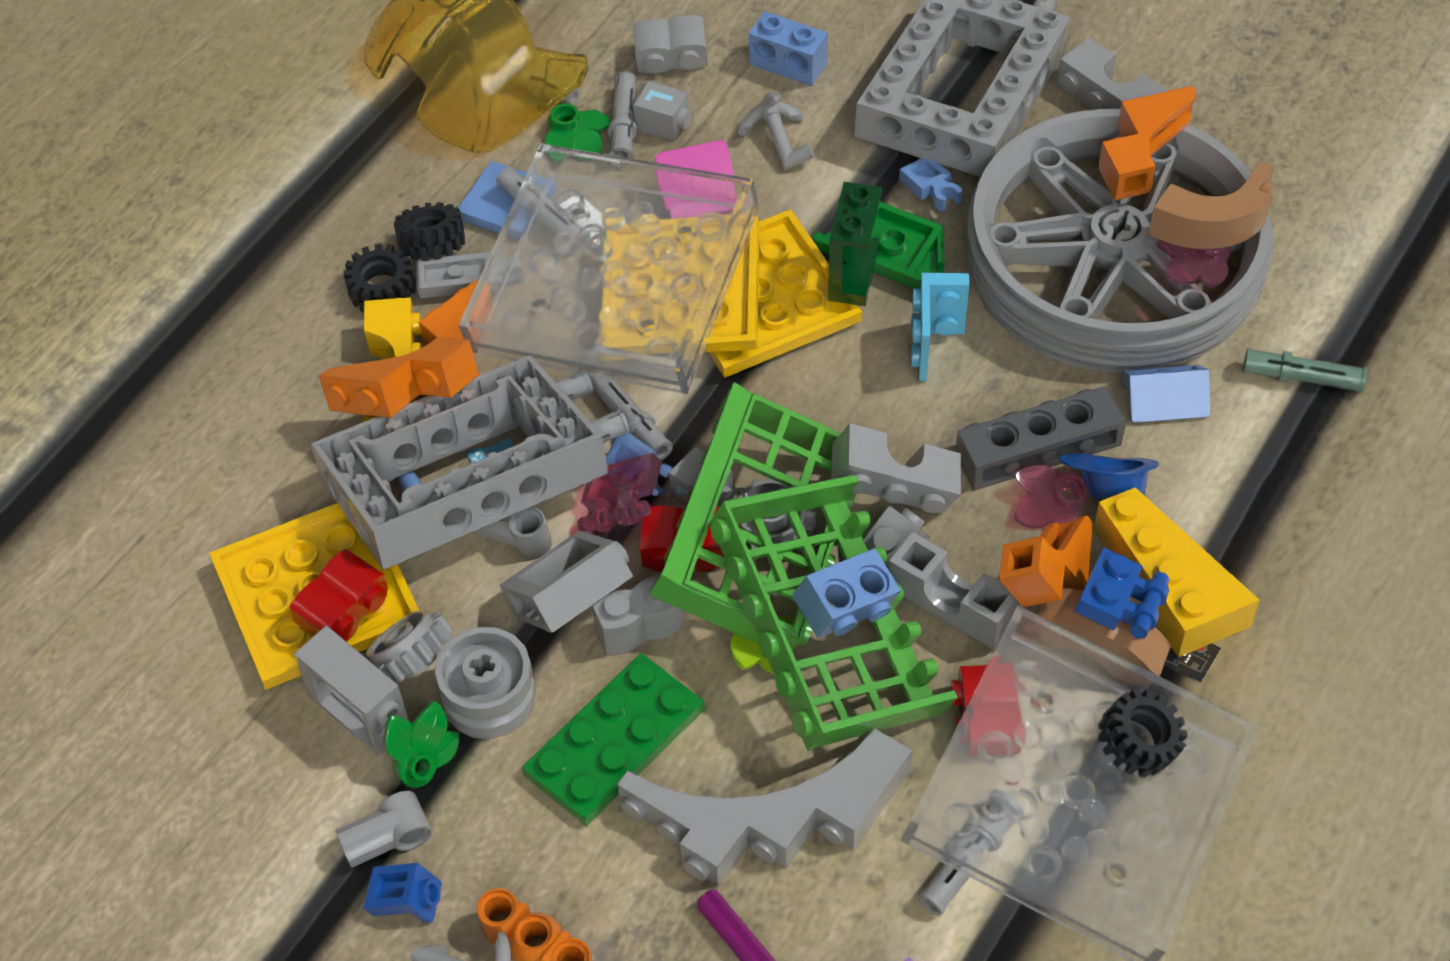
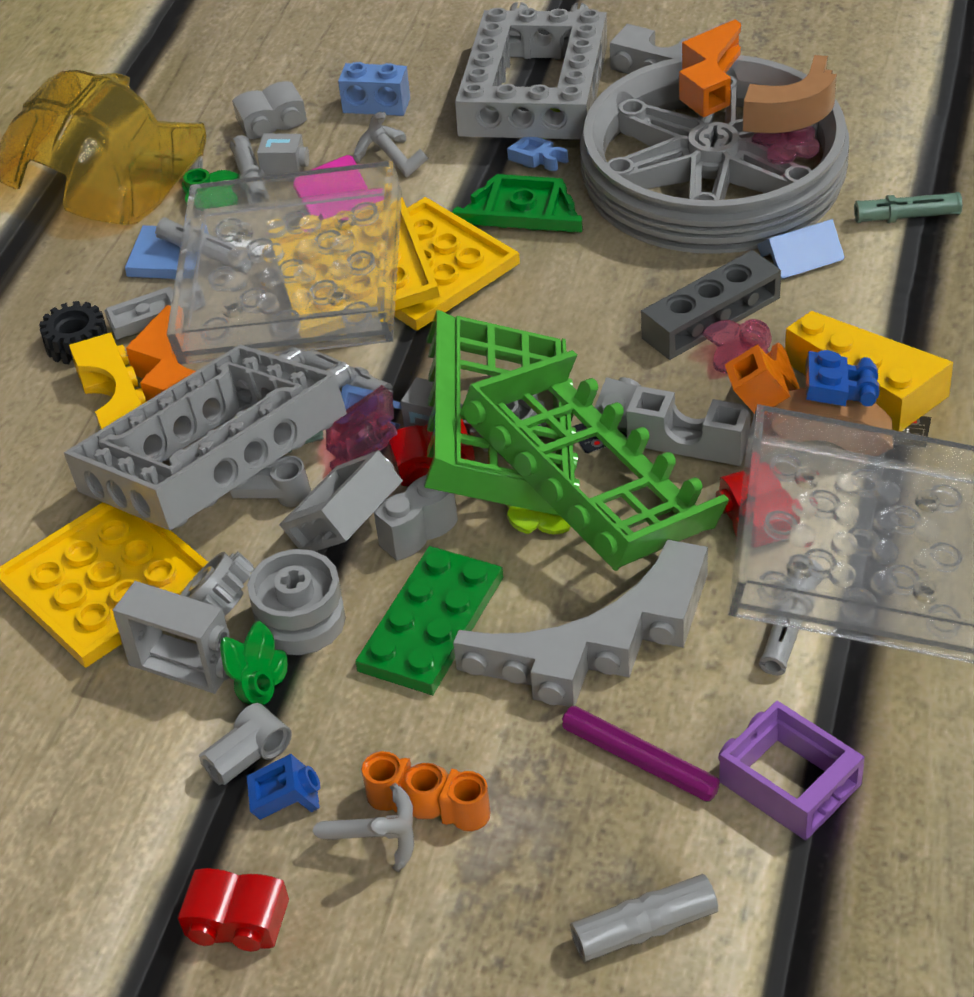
camera: 15 degrees left, 10 degrees down
(340, 596) = (134, 556): red brick -> none
(392, 383) = (125, 388): orange arch -> none
(430, 231) = (108, 283): black tyre -> none
(844, 587) = (601, 441): medium blue brick -> none
(851, 246) = (498, 214): dark green panel -> none
(926, 482) = (628, 353): light grey arch -> none
(941, 311) = (588, 234): medium azure bracket -> none
(1110, 475) = (782, 315): blue piece -> none
(1159, 722) = (903, 475): black tyre -> none

